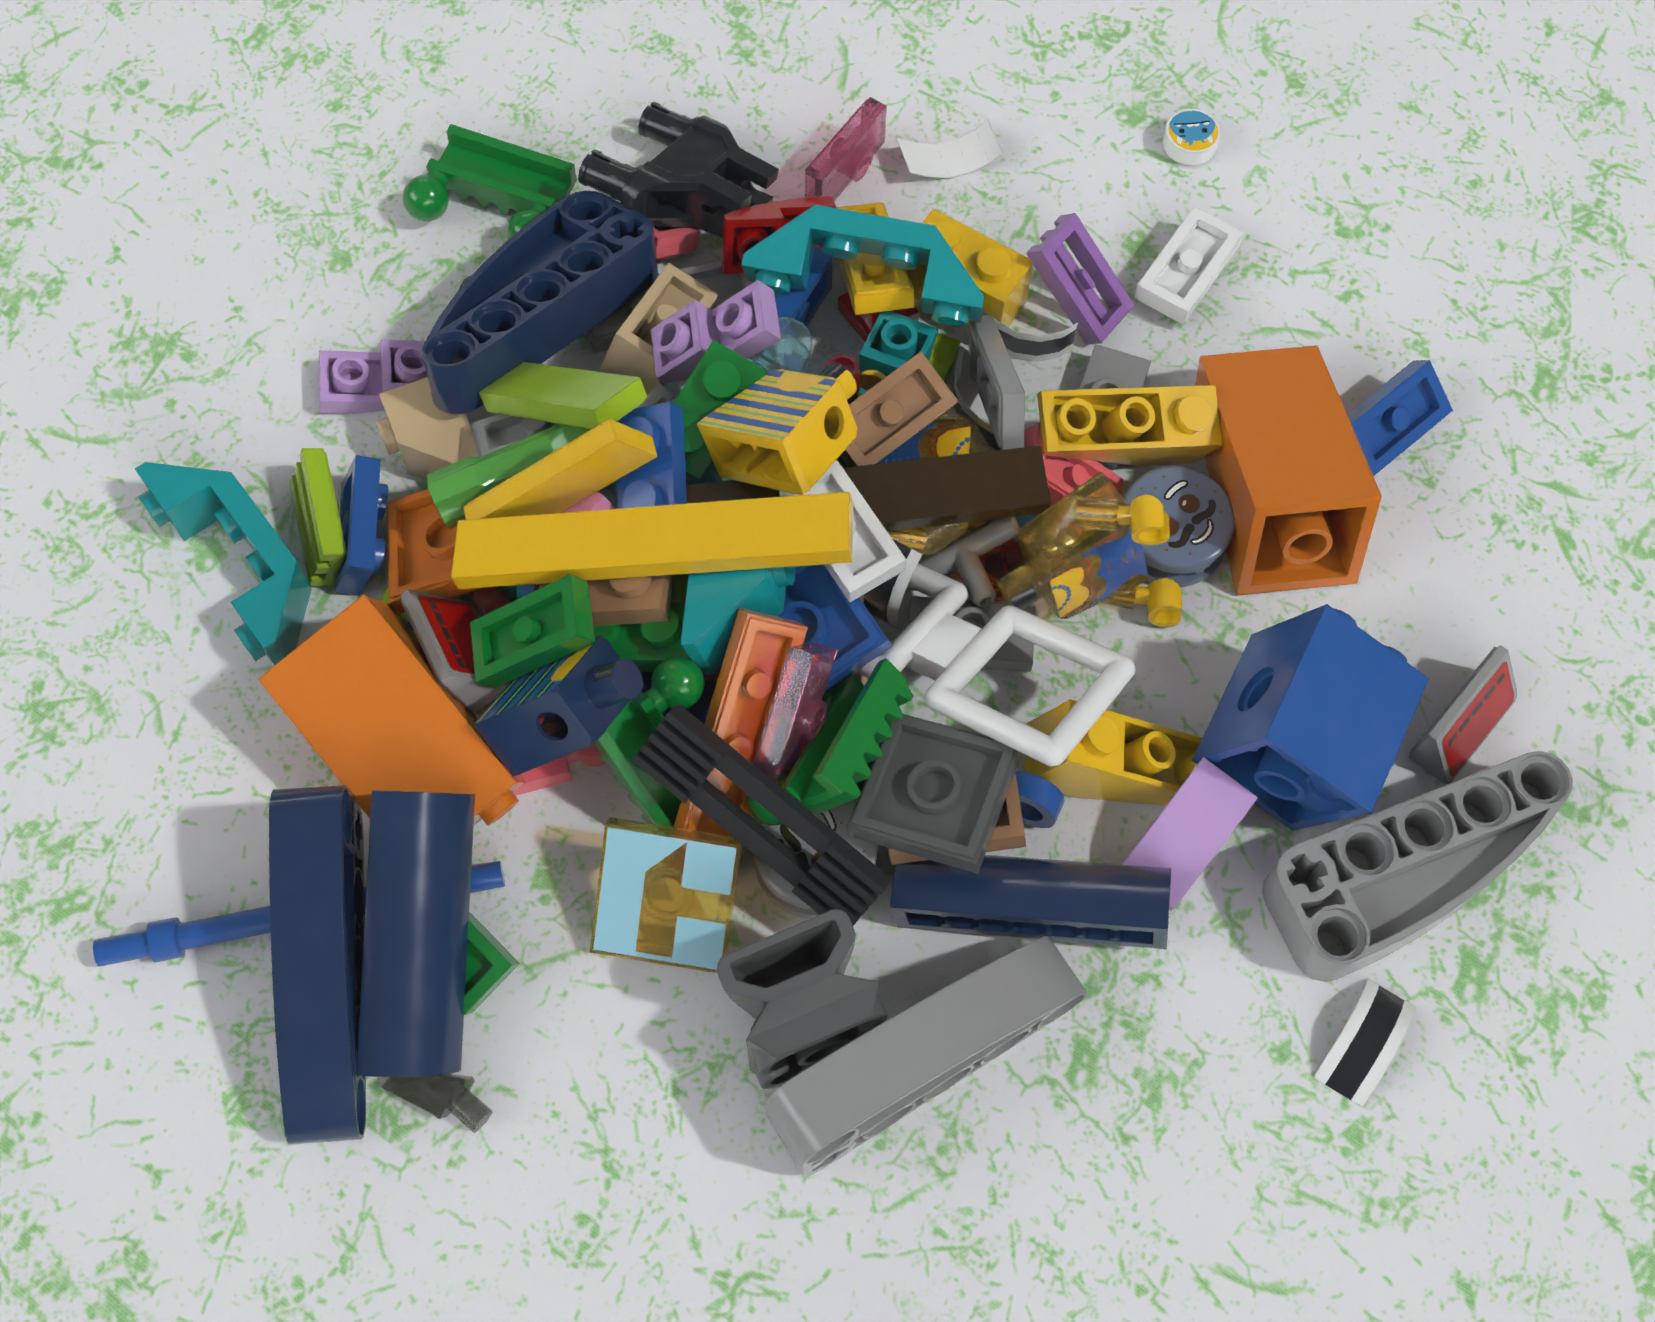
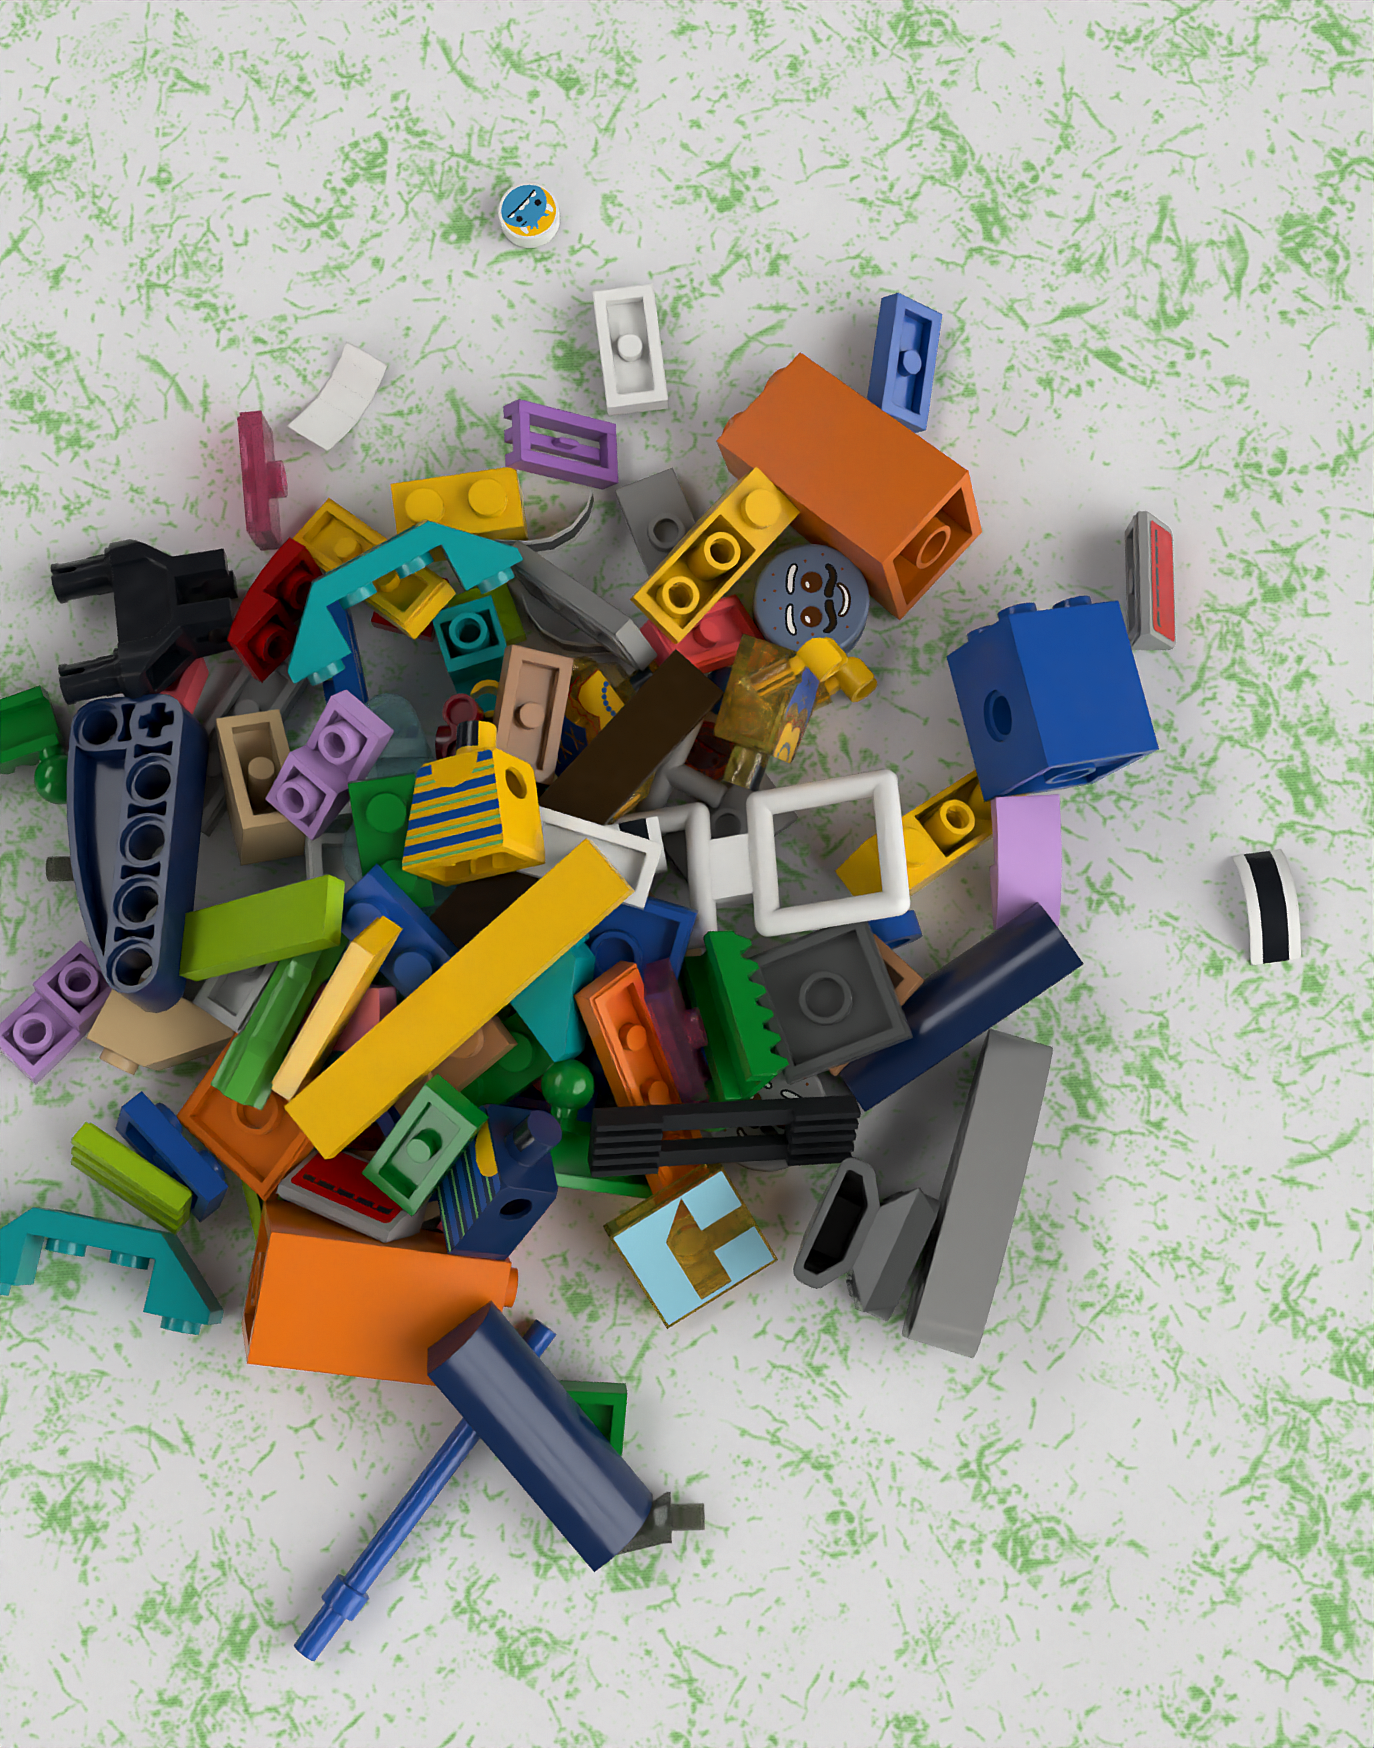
camera: 35 degrees left, 15 degrees up
(317, 959) = (487, 1517): dark blue beam -> none
(1409, 883) = (1211, 766): light grey beam -> none

